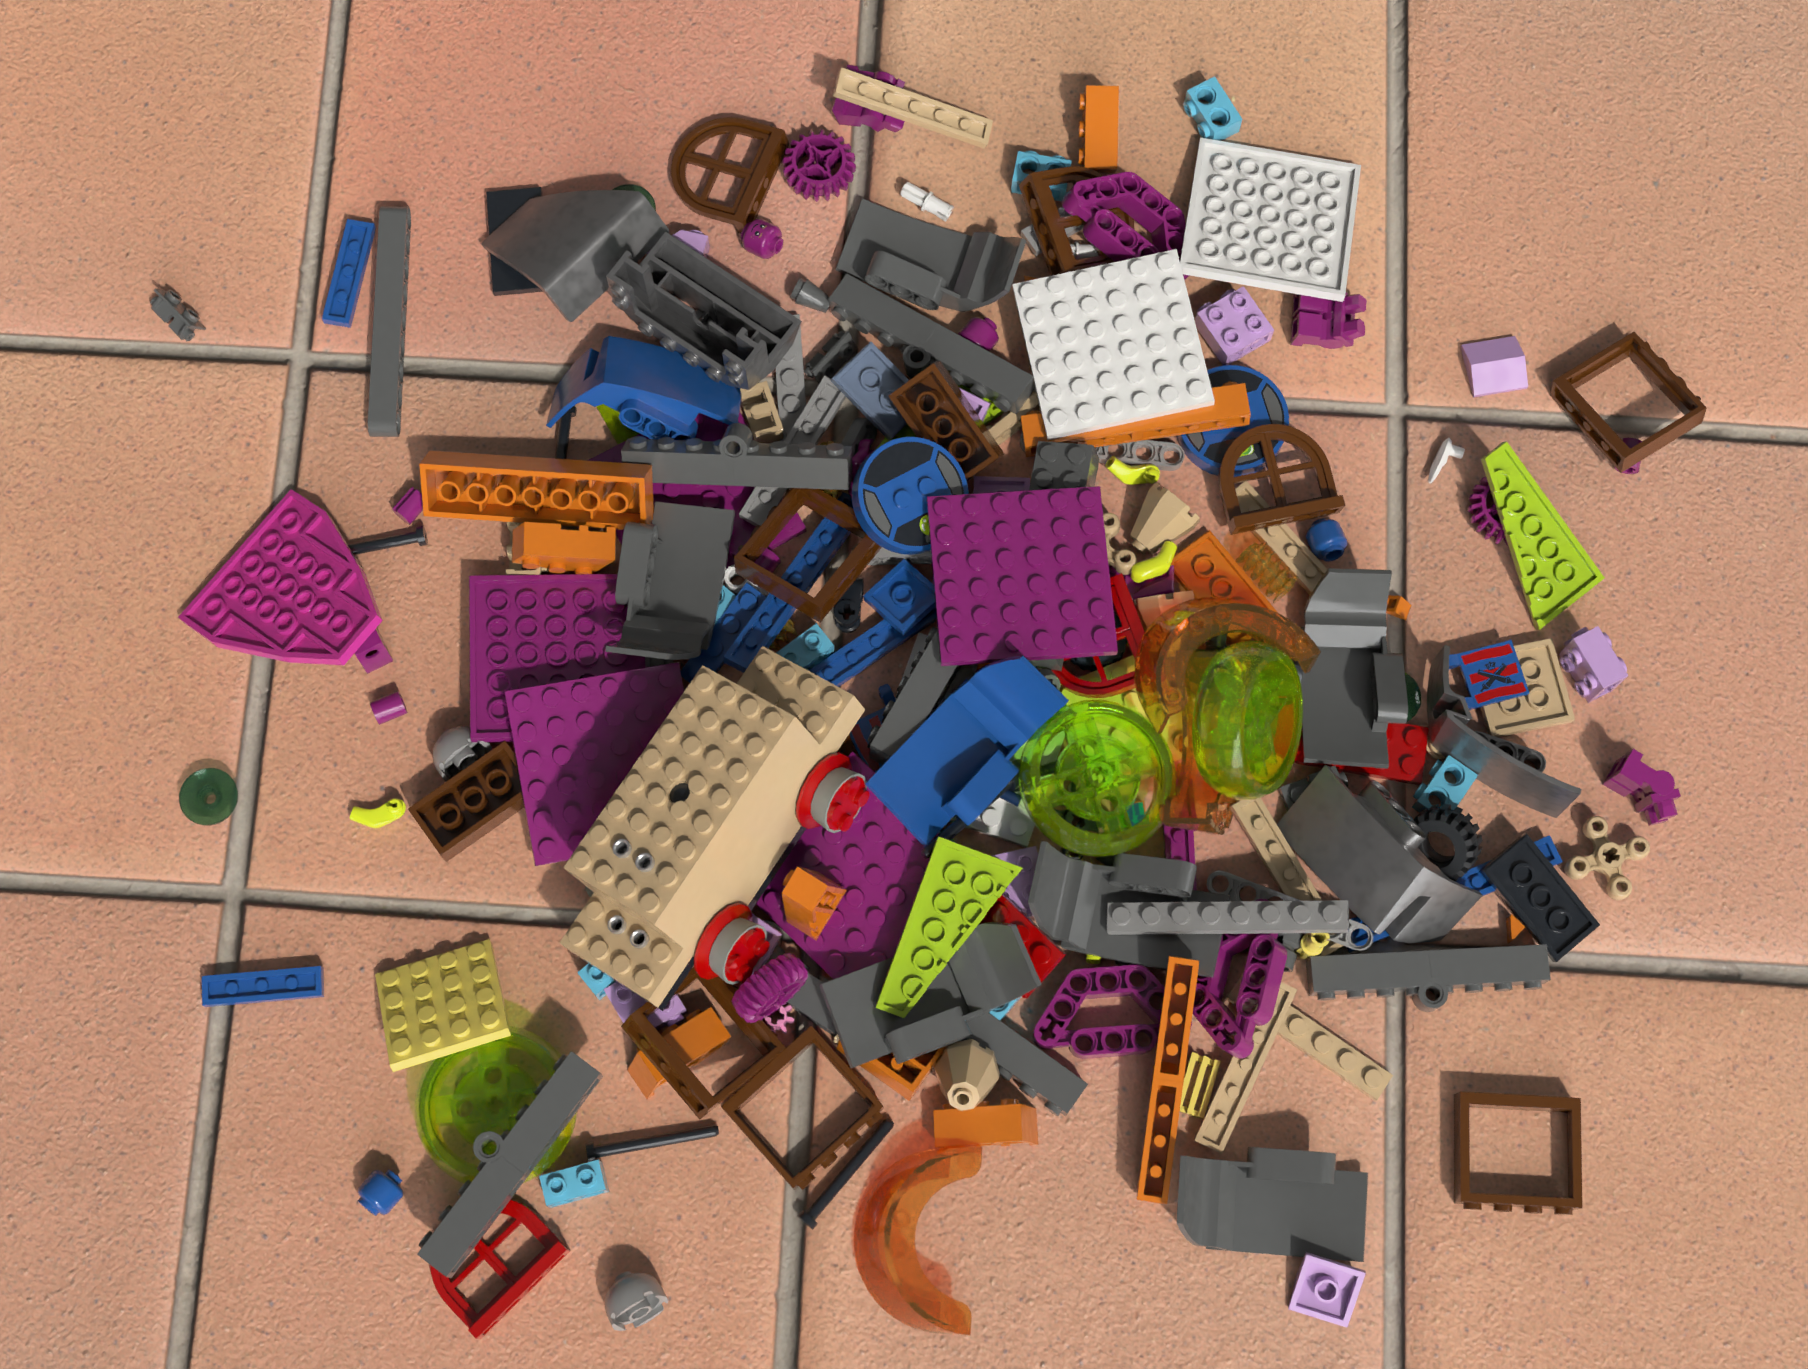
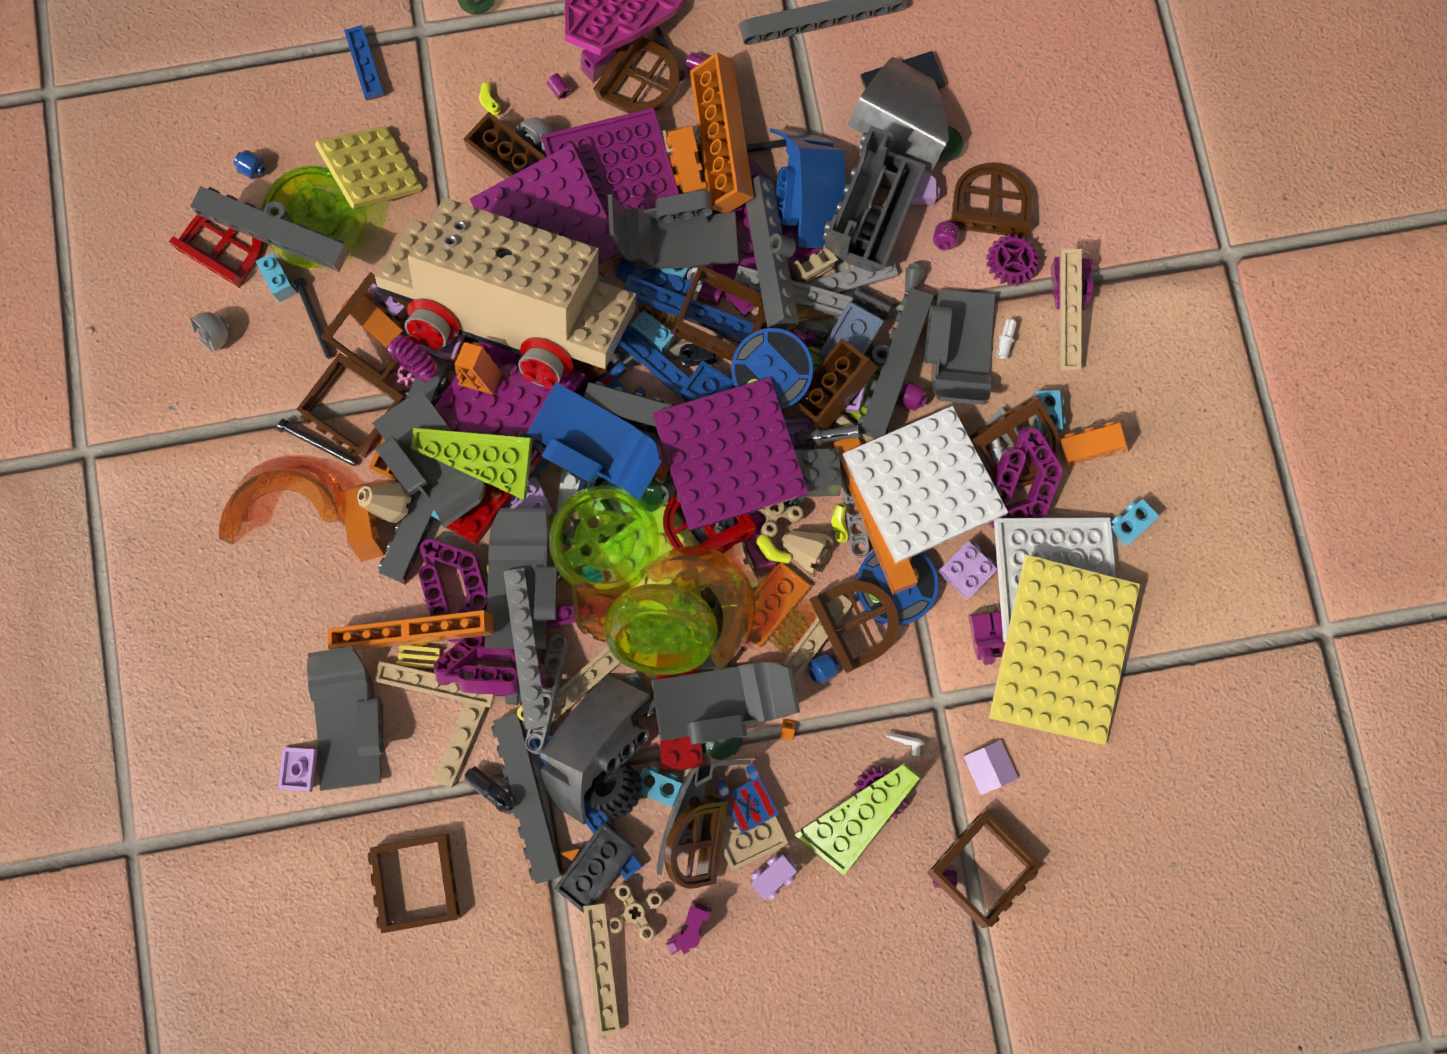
camera: 80 degrees right, 5 degrees up
(393, 620) = (622, 65): none -> reddish brown window
(1011, 464) = (820, 436): none -> dark grey pin
(1367, 232) = (1064, 650): none -> light yellow plate
(1430, 998) = (489, 789): none -> black piece
(1519, 731) = (709, 845): none -> reddish brown window
(1675, 917) = (601, 969): none -> tan plate

